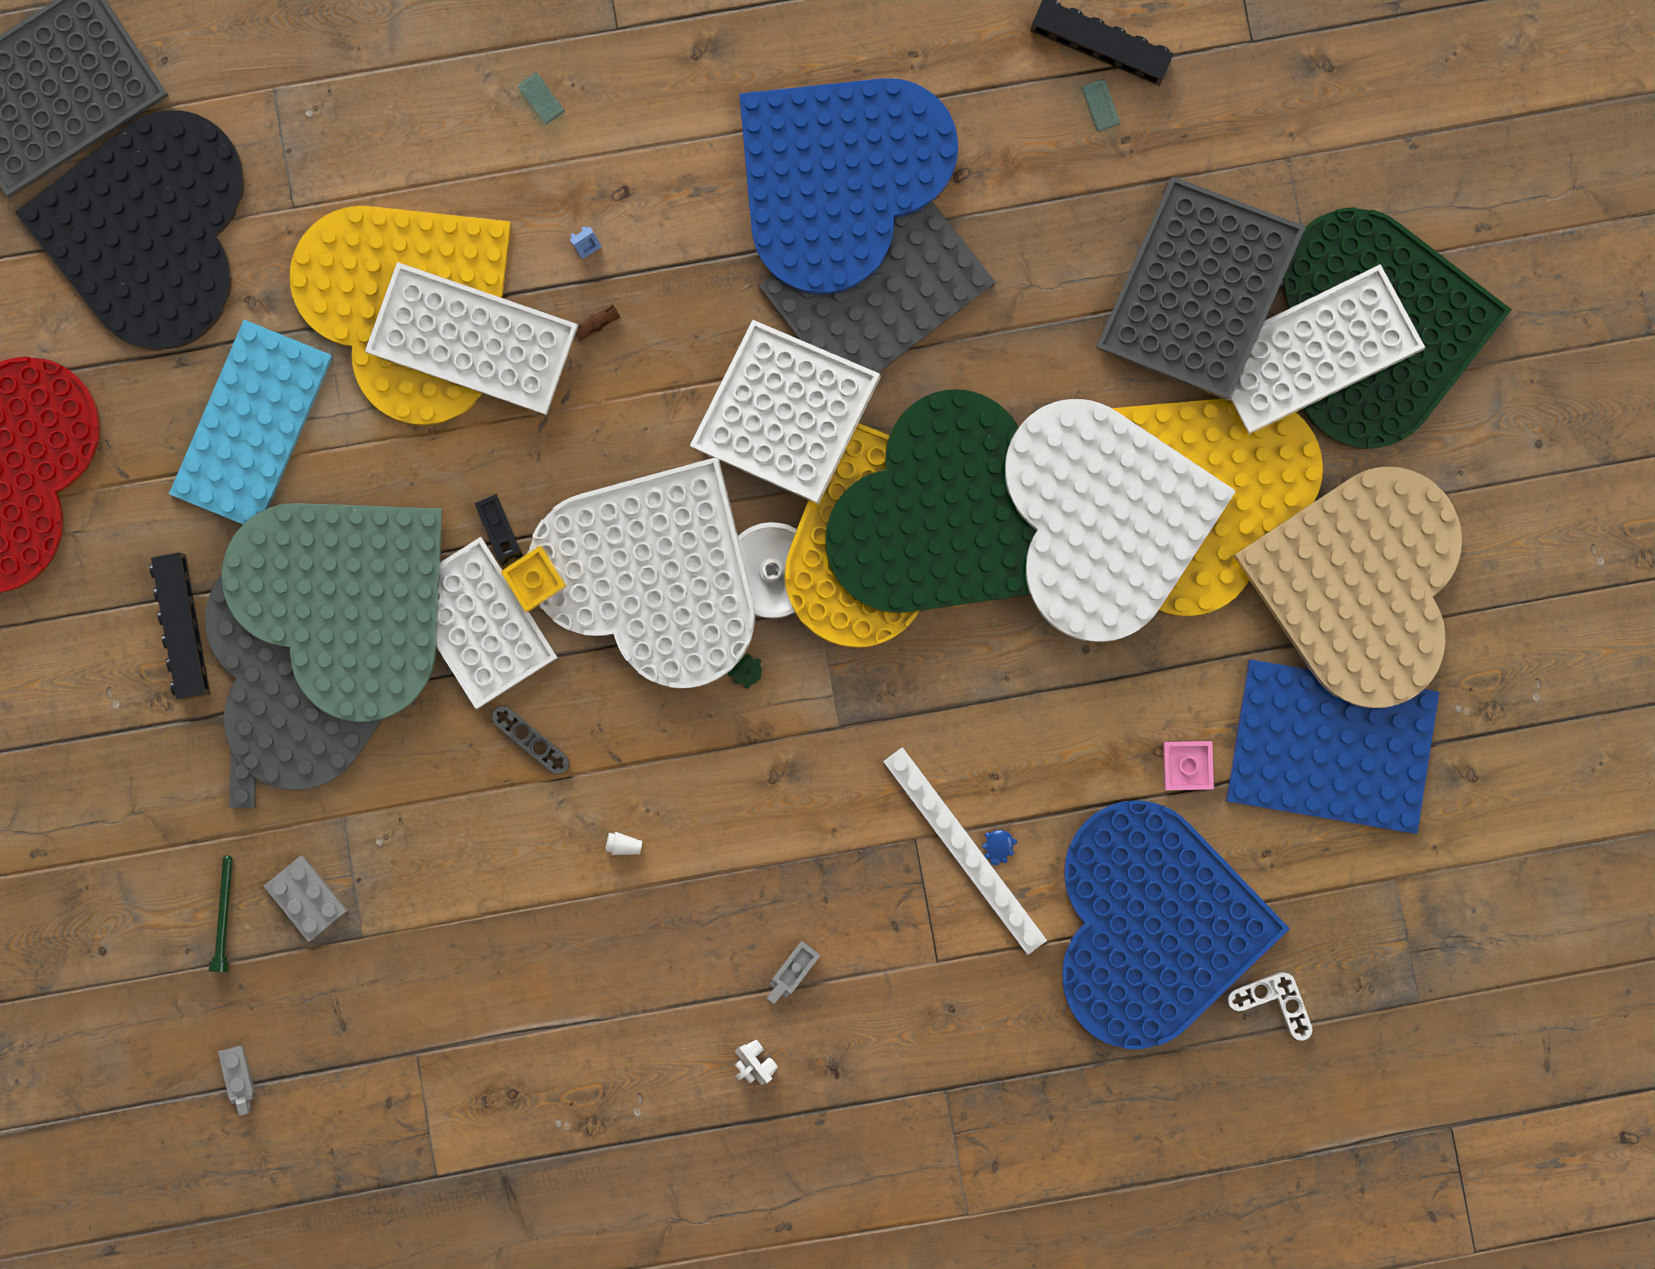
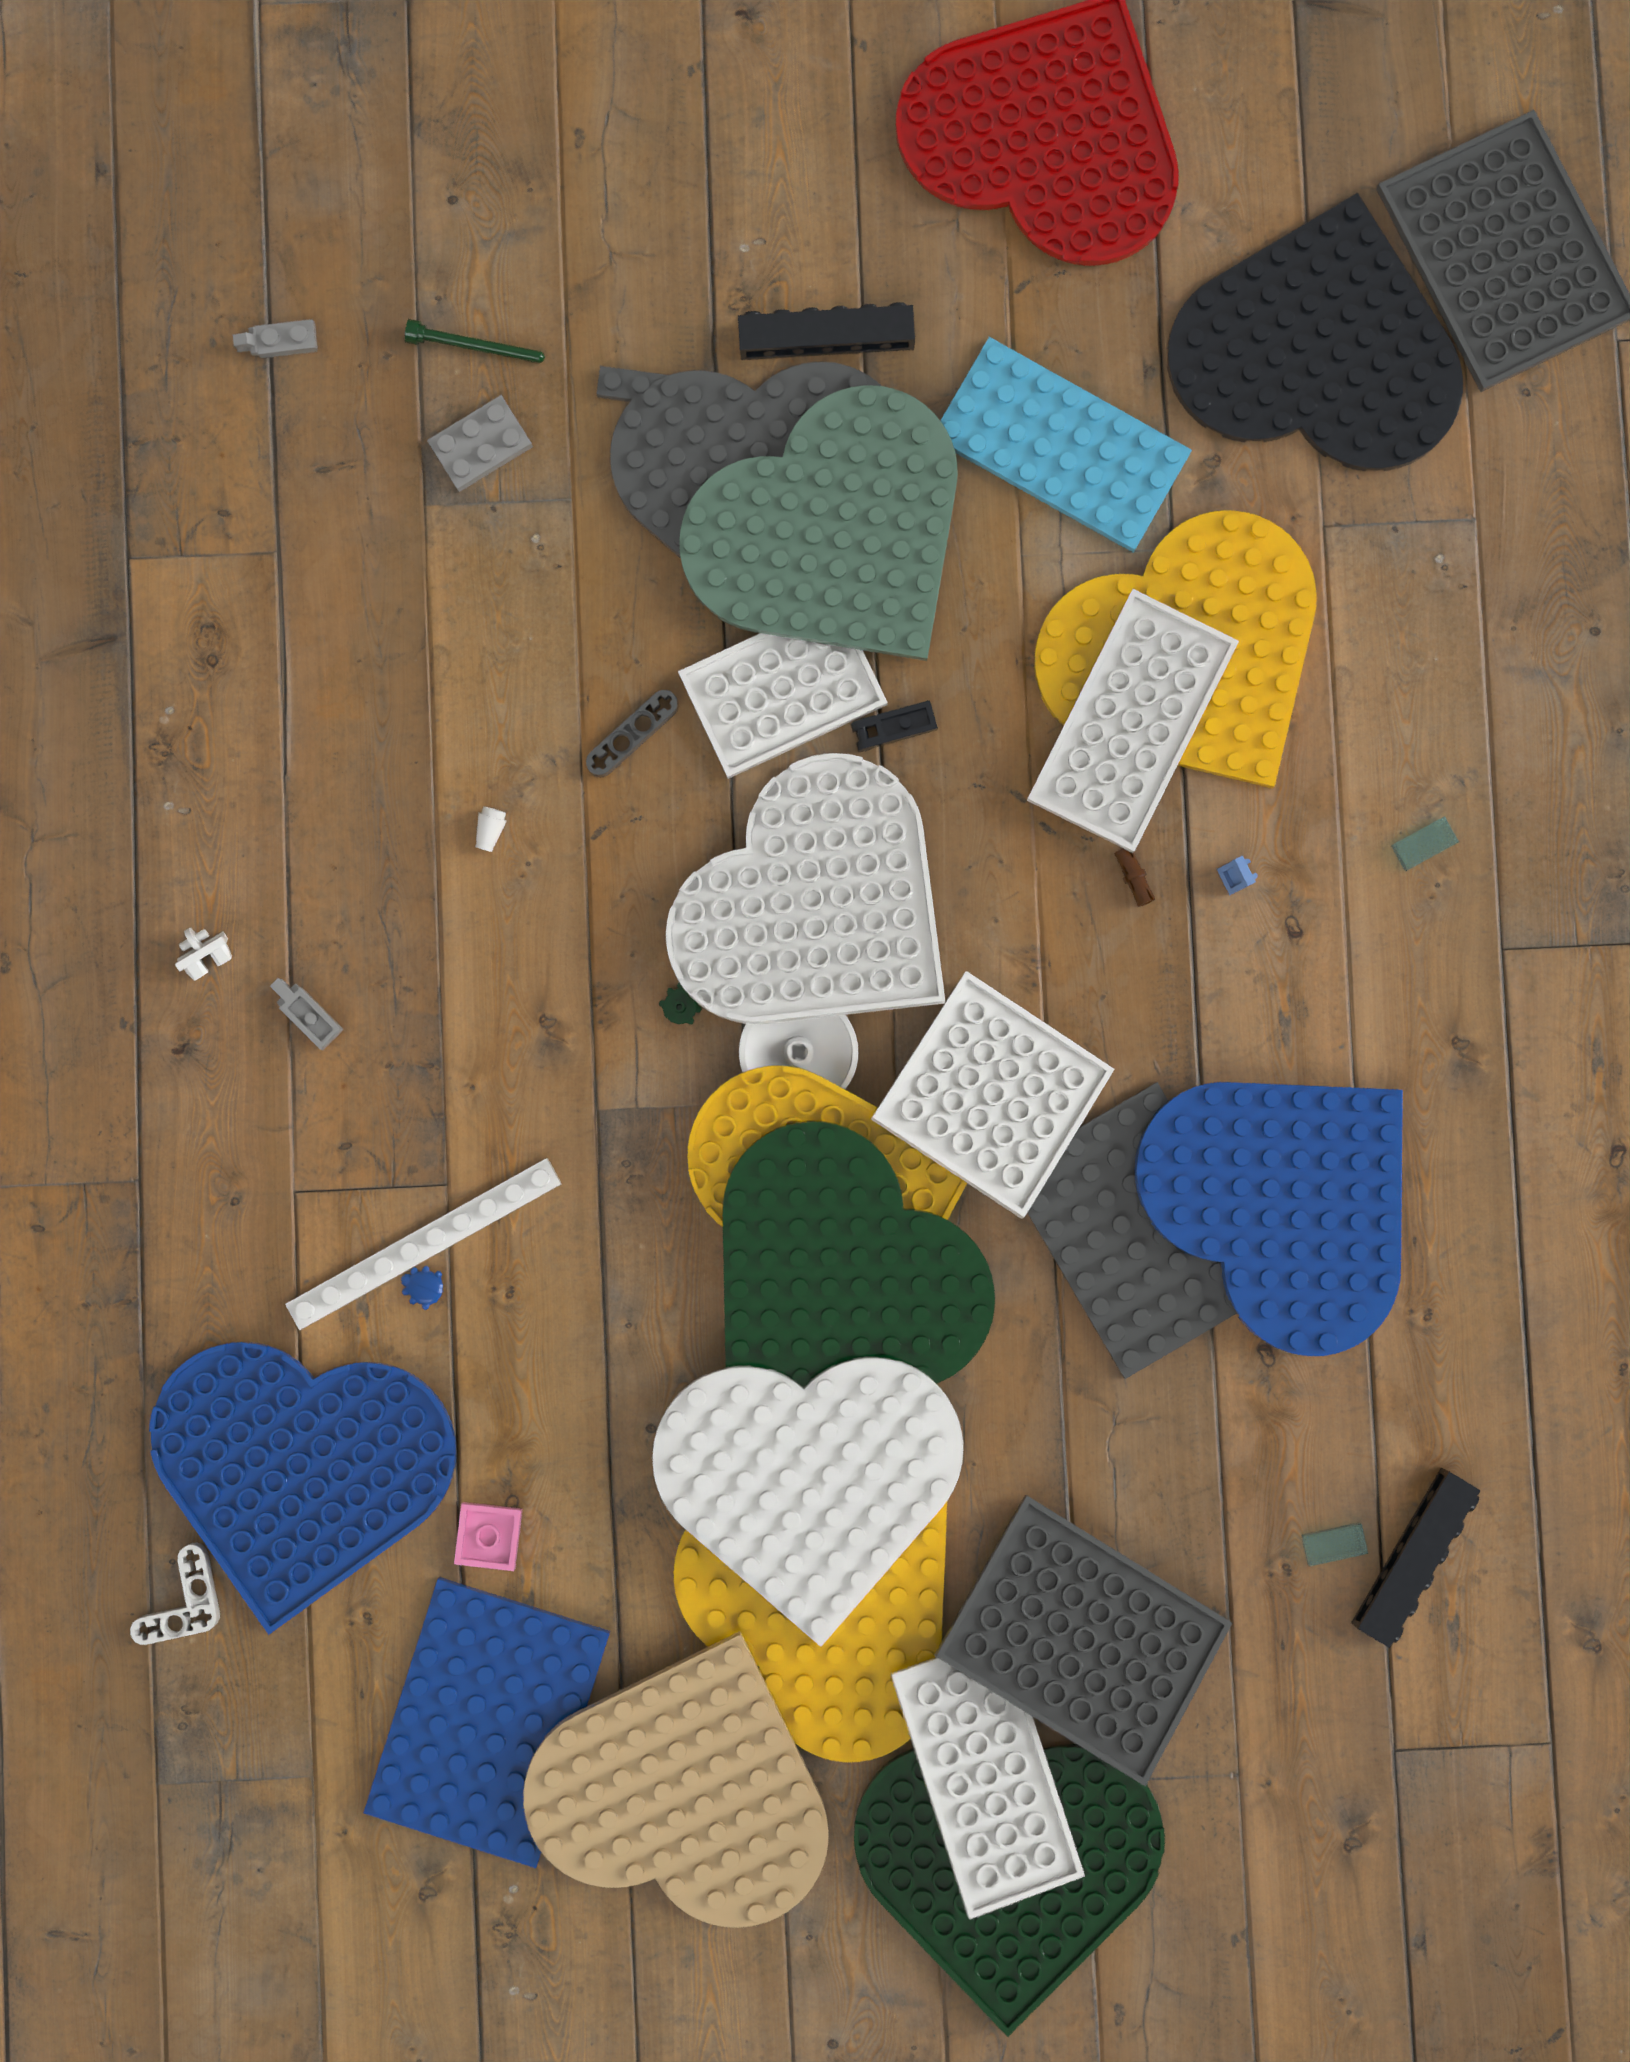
camera: 100 degrees right, 0 degrees up
(533, 579) = (826, 759): yellow plate -> none

